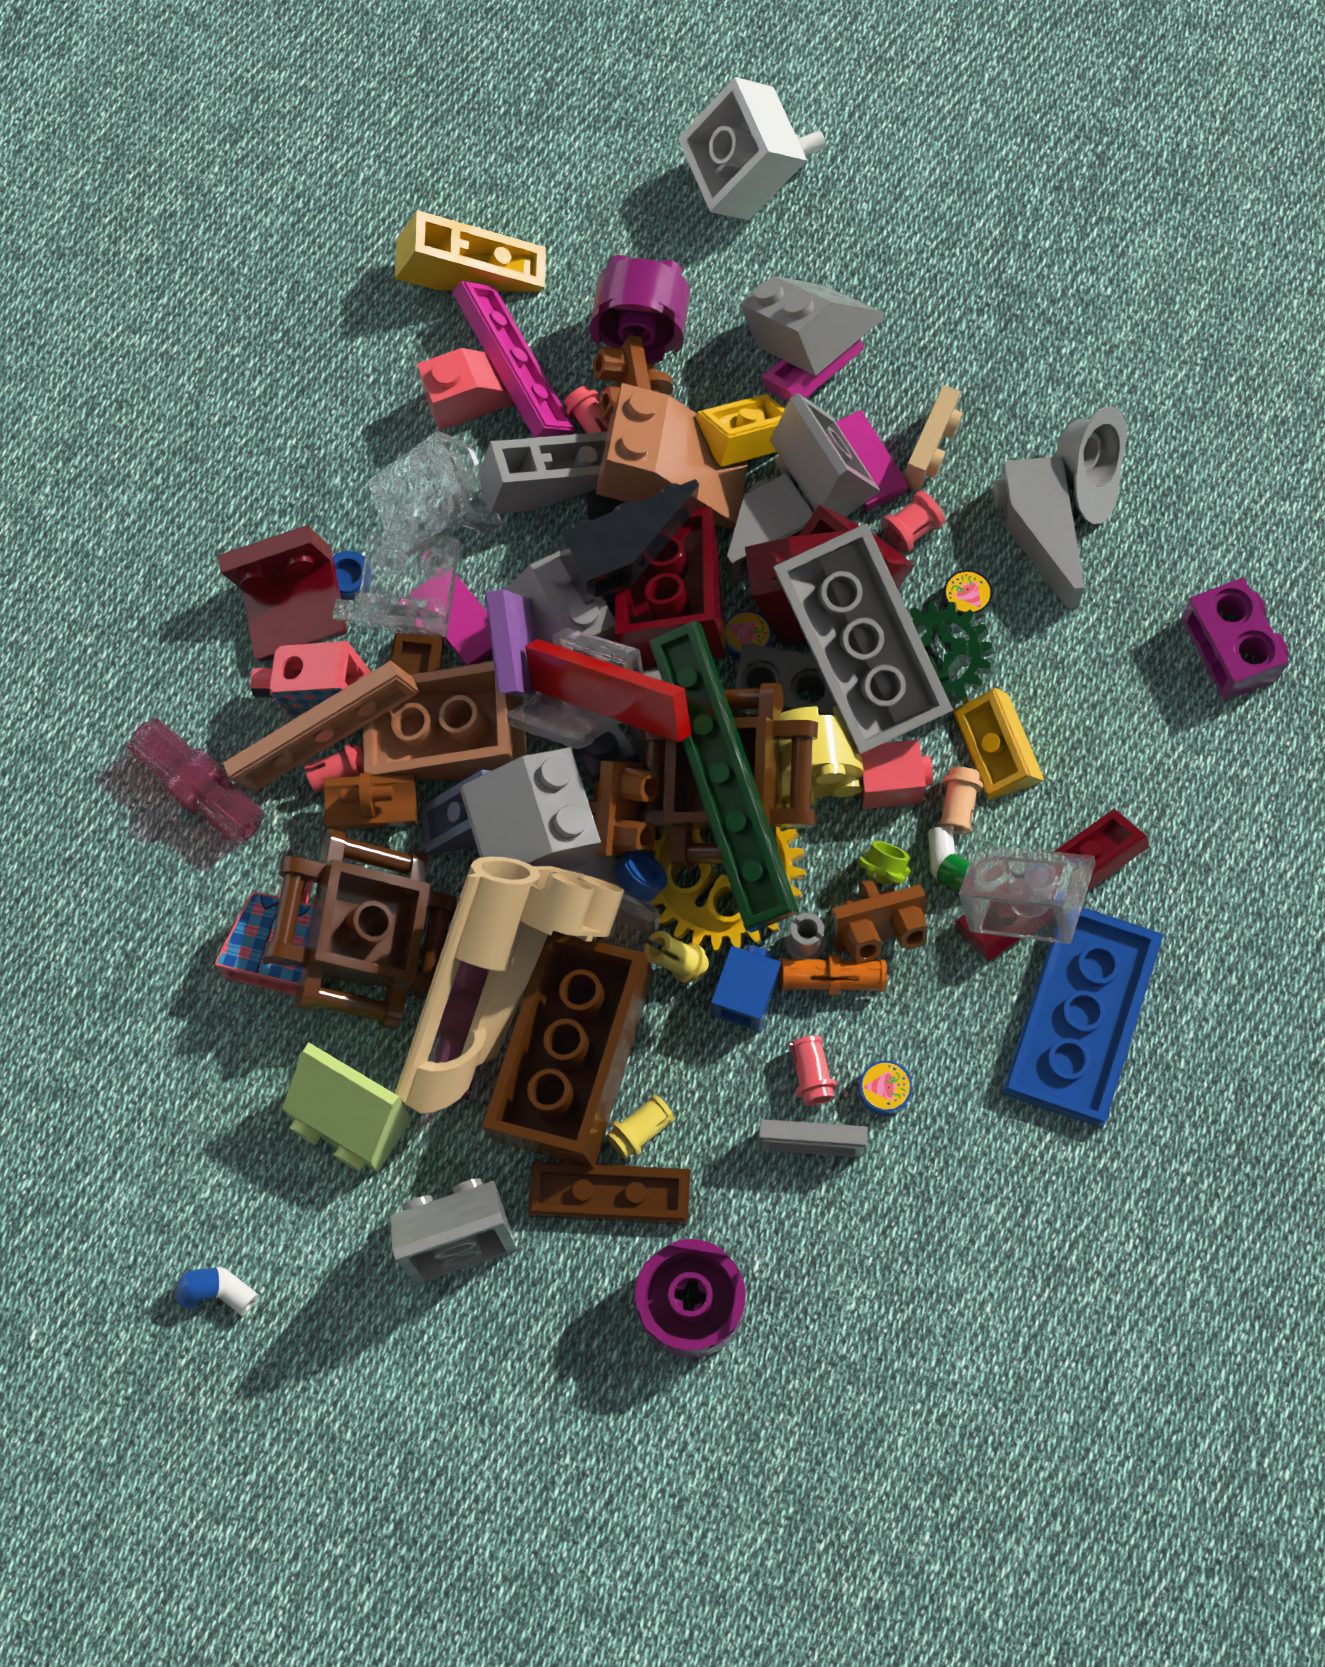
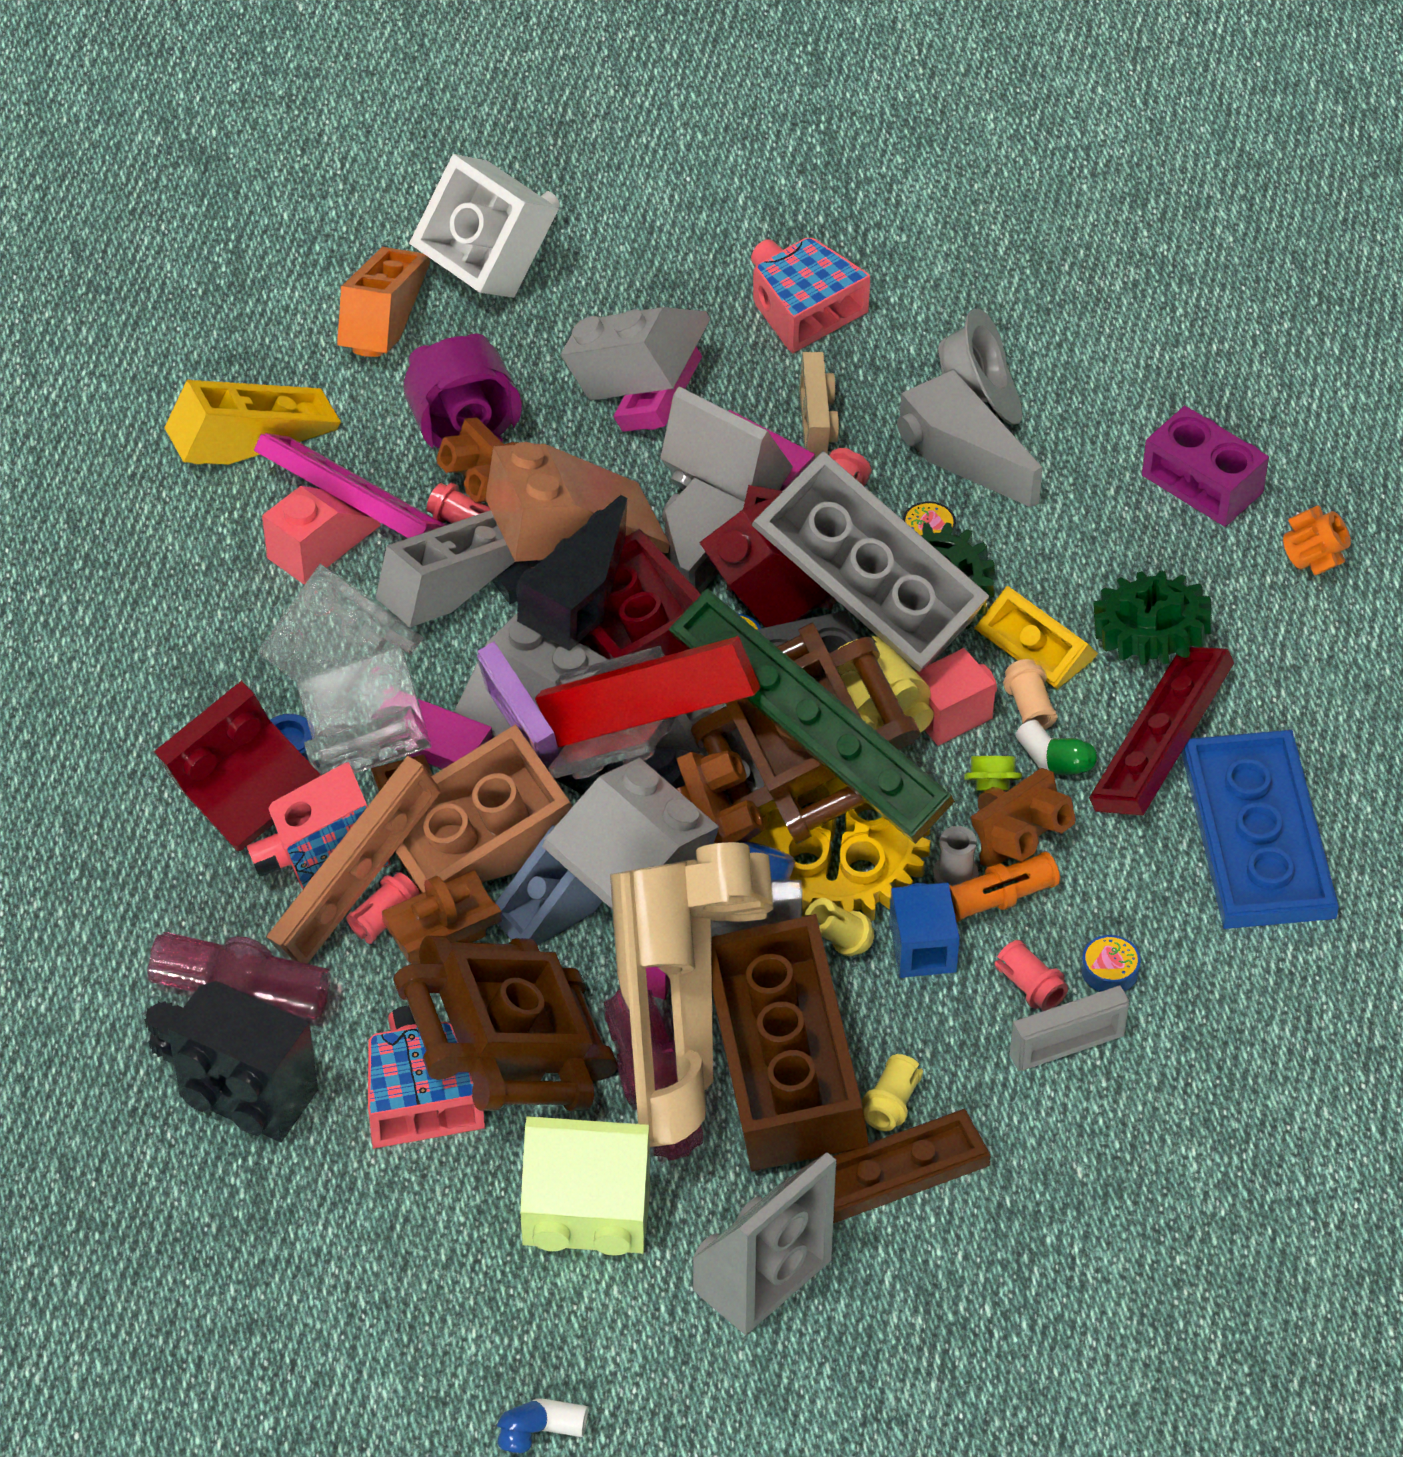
camera: 30 degrees left, 20 degrees down
(140, 866) = (237, 1057): none -> black hinge
(629, 182) = (379, 300): none -> orange slope
(670, 1275) = (1039, 1208): magenta brick -> none
(740, 428) = (627, 460): yellow slope -> none
(988, 316) = (807, 290): none -> coral torso
(1025, 892) = (1147, 732): clear slope -> none
(1102, 773) = (1152, 617): none -> dark green gear
(1288, 758) = (1316, 540): none -> orange gear

